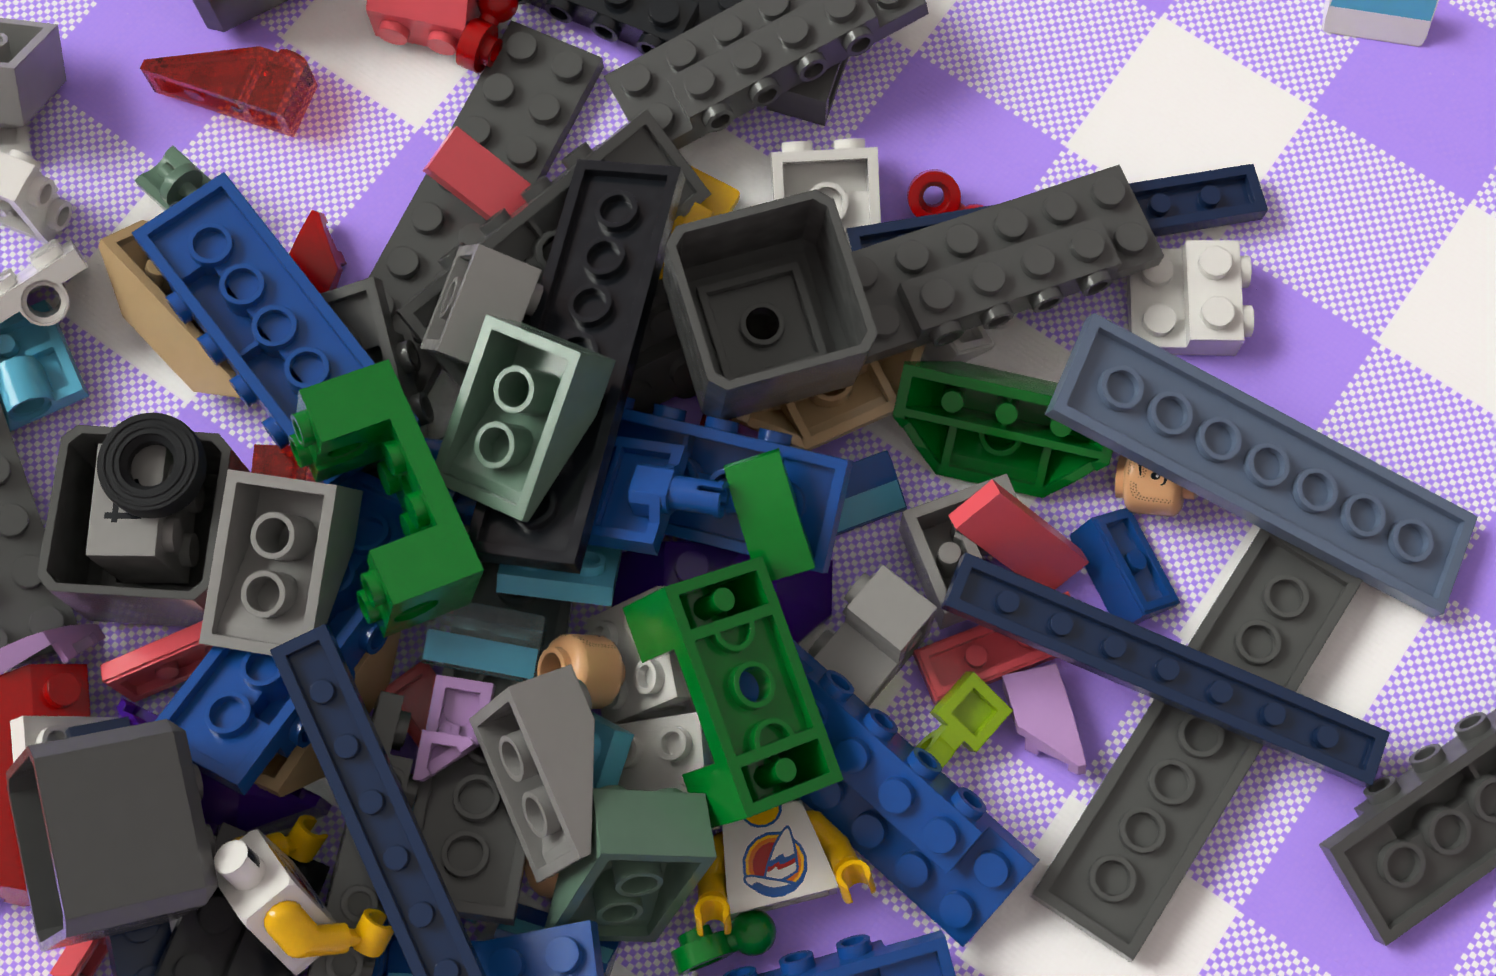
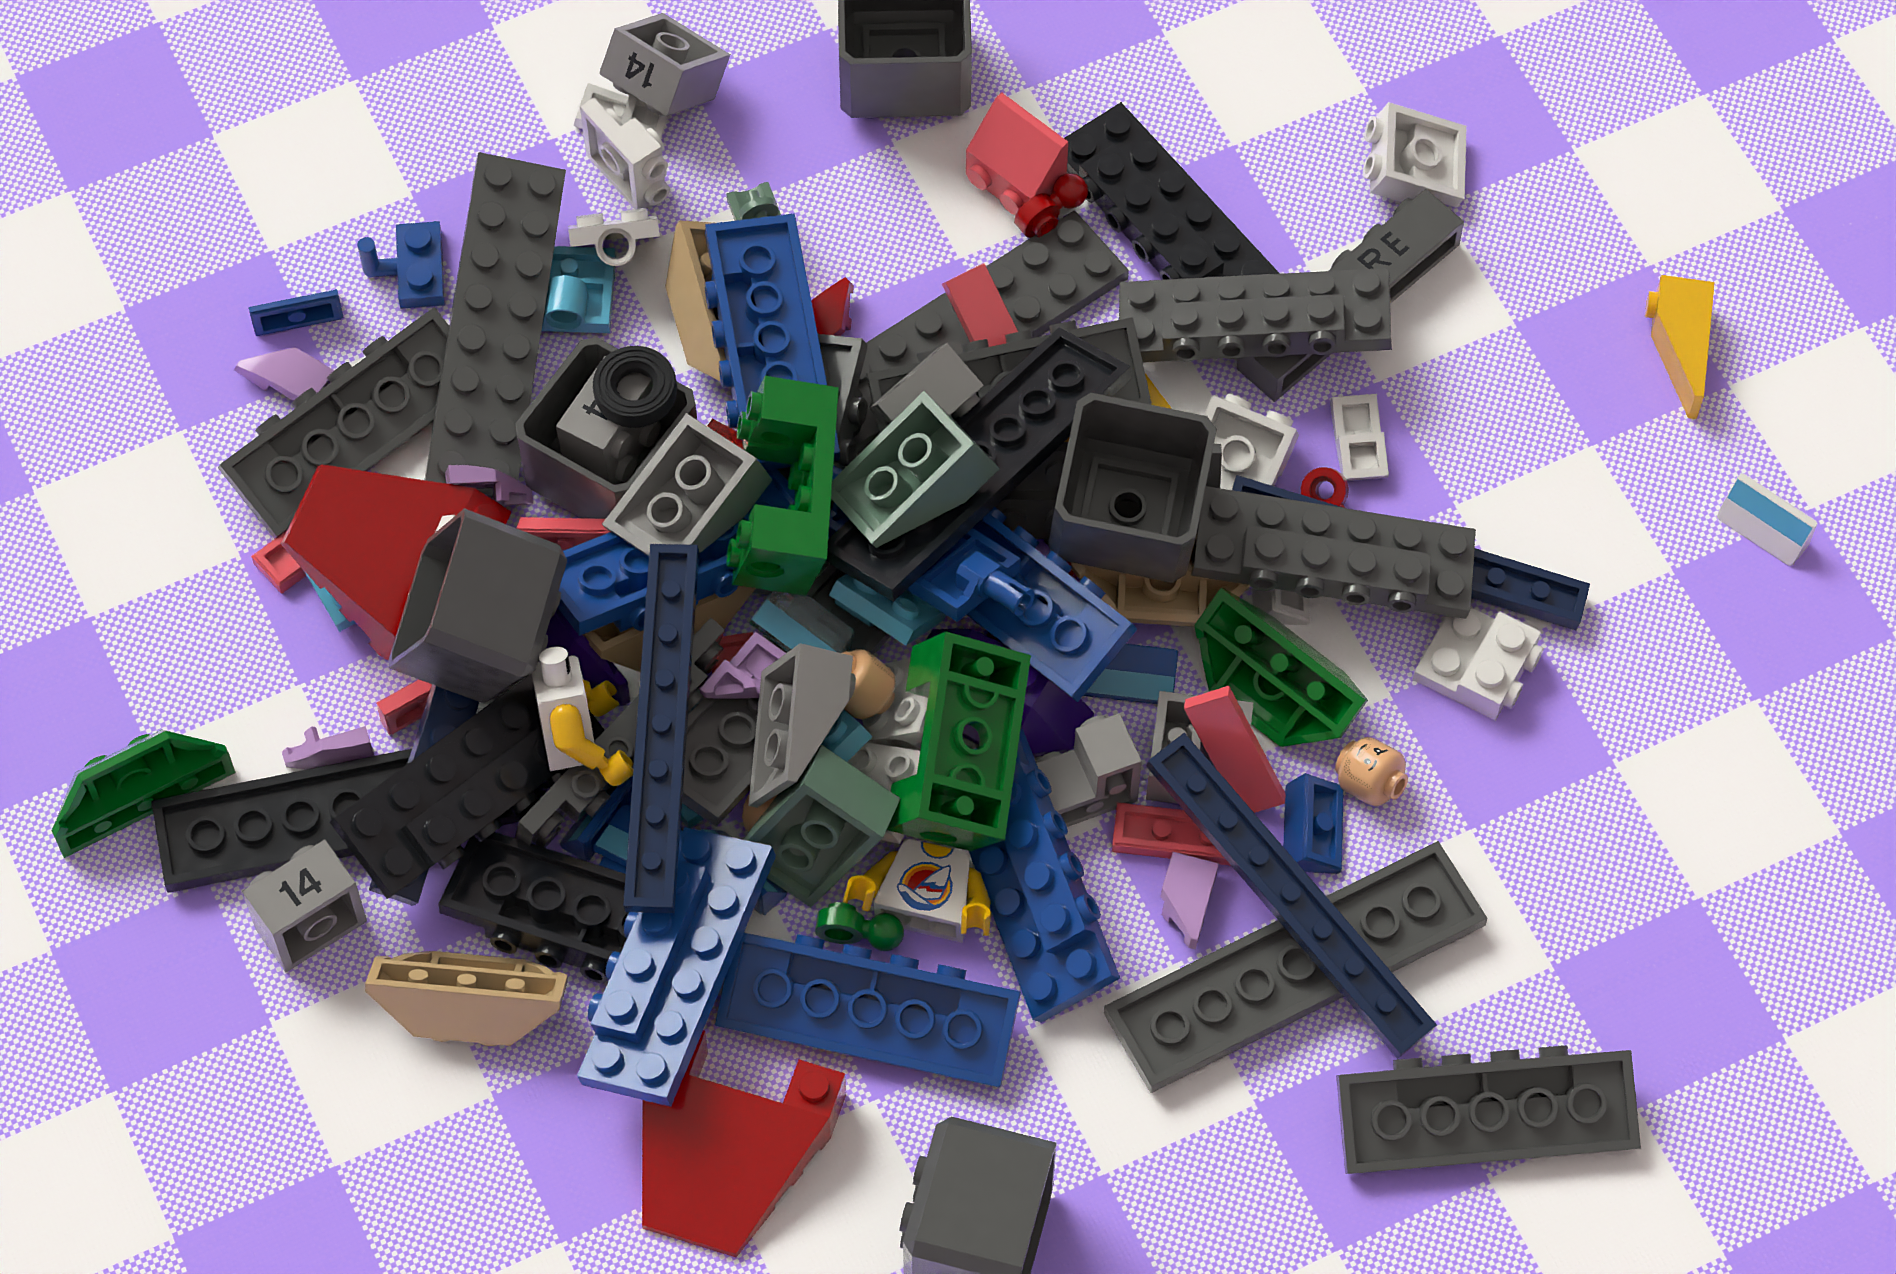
camera: 25 degrees right, 10 degrees down
(240, 83) = (843, 161): clear red slope -> none
(769, 514) = (1053, 631): green slope -> none
(931, 122) = (1359, 437): none -> white slope
(967, 717) = (1127, 864): lime plate -> none
(1262, 465) = (1453, 793): sand blue plate -> none

